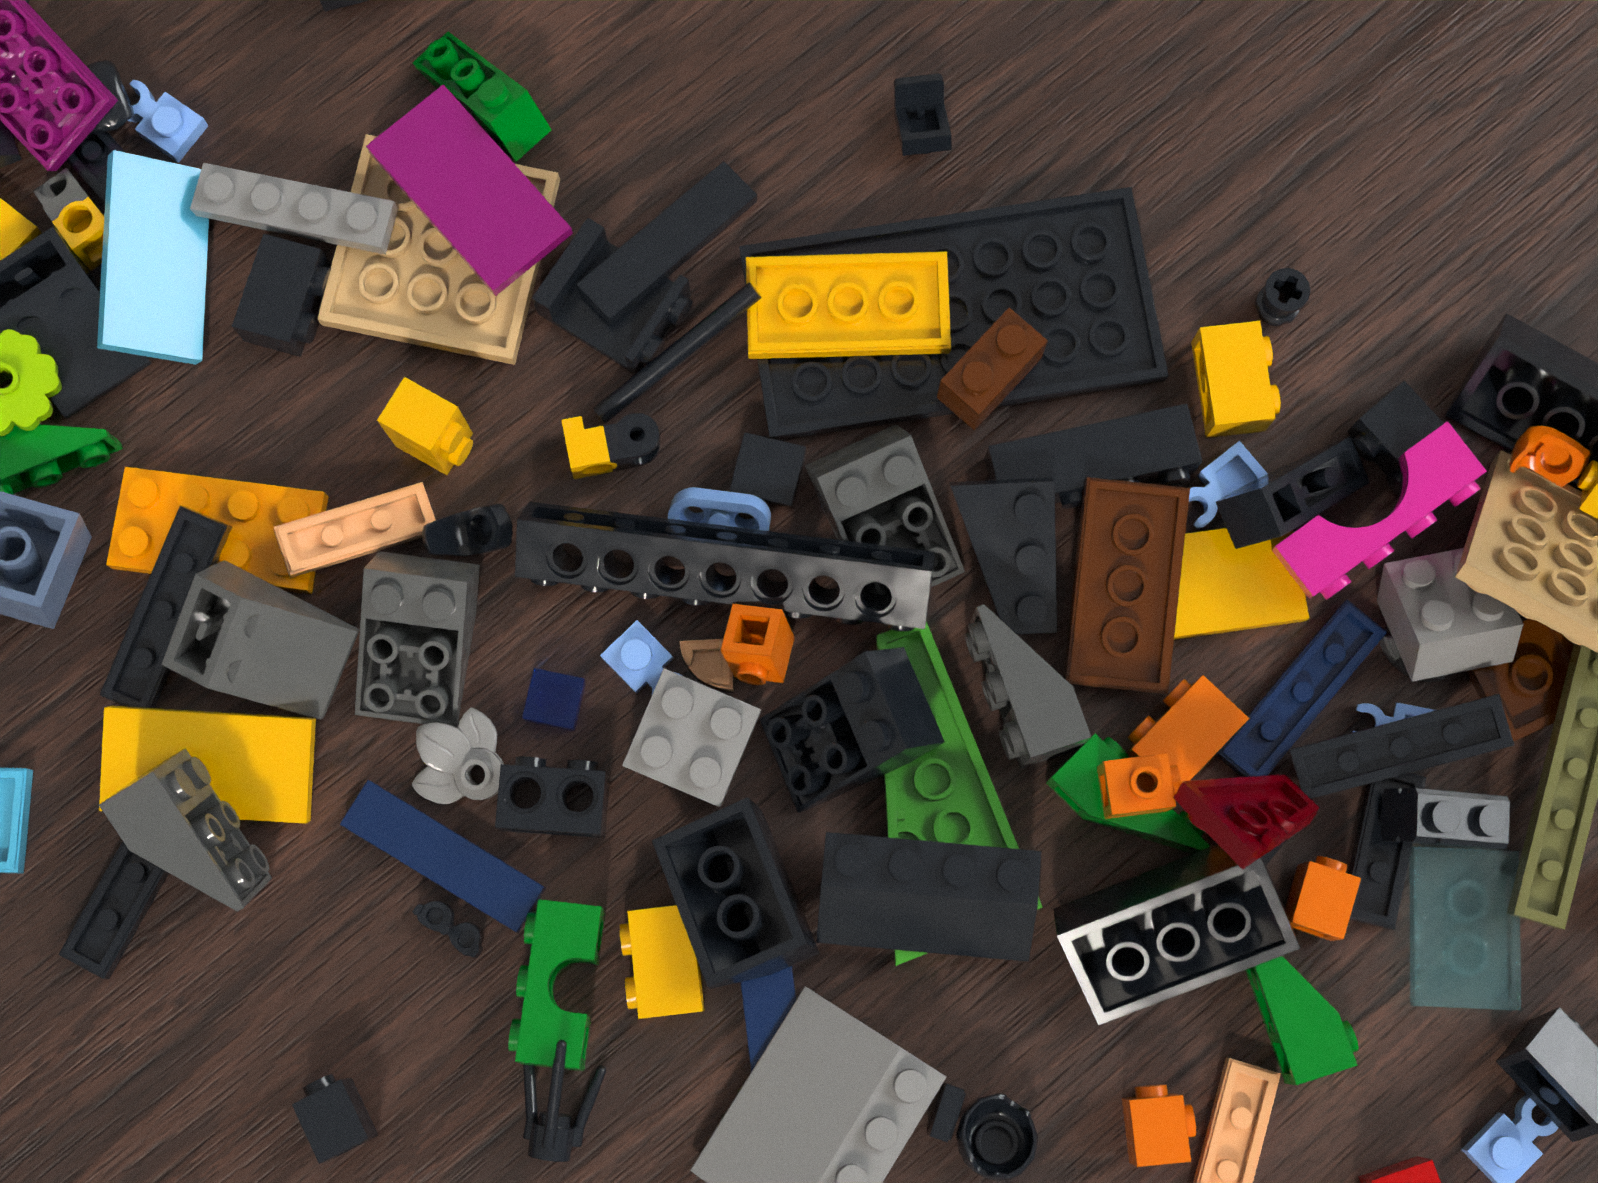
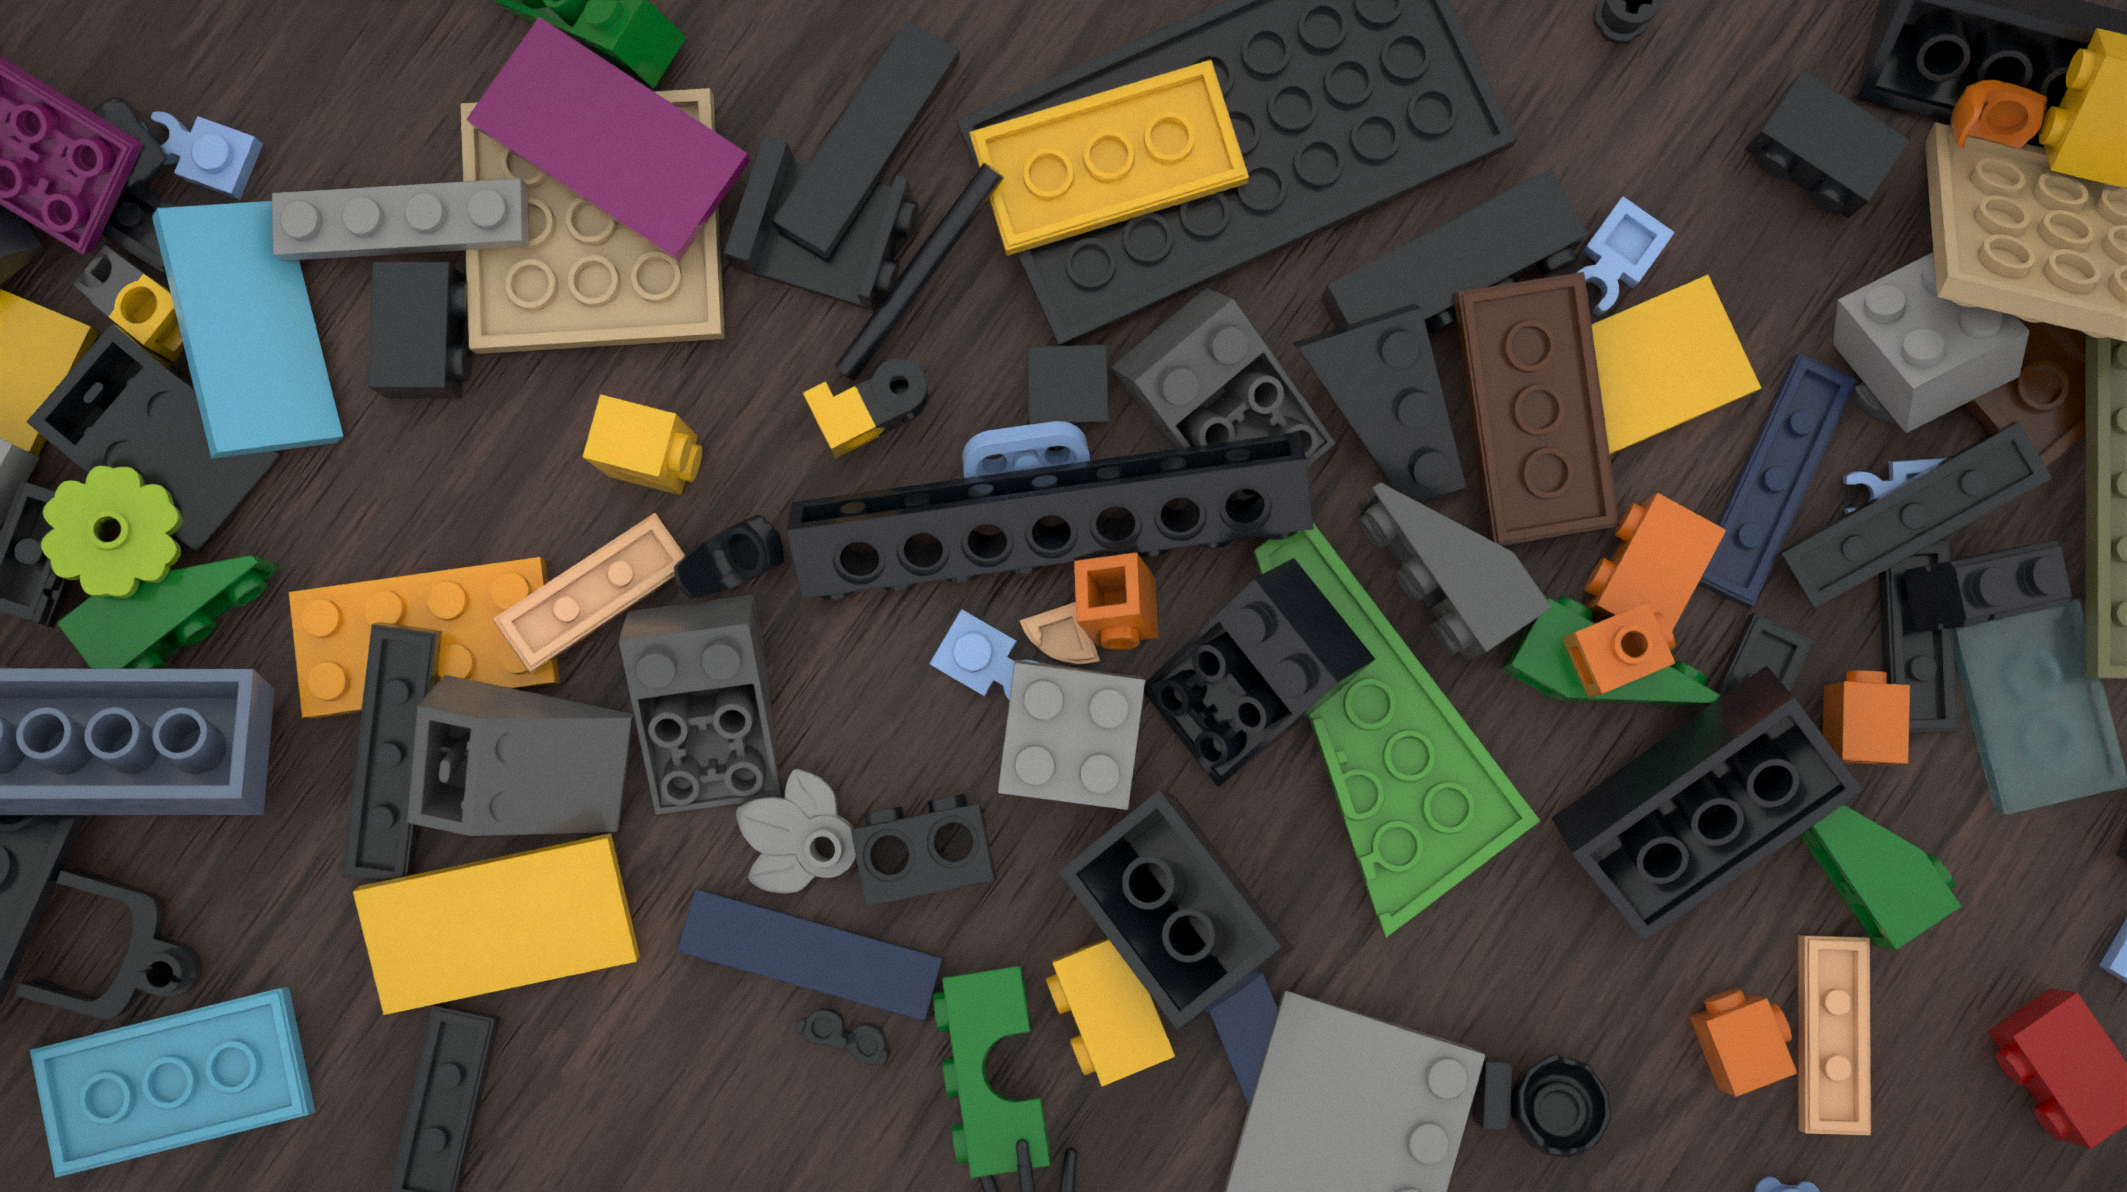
camera: 10 degrees left, 5 degrees up
(187, 831) = (499, 1016): dark grey slope -> none
(554, 699) = (890, 732): clear blue plate -> none
(928, 896) = (1405, 848): black slope -> none
(991, 368) = (1306, 189): reddish brown brick -> none
(1235, 379) = (1597, 122): yellow brick -> none
(1247, 812) = (1758, 647): dark red wing -> none
(1292, 494) = (1705, 246): black slope -> none
(1432, 473) = (1869, 178): dark pink arch -> none

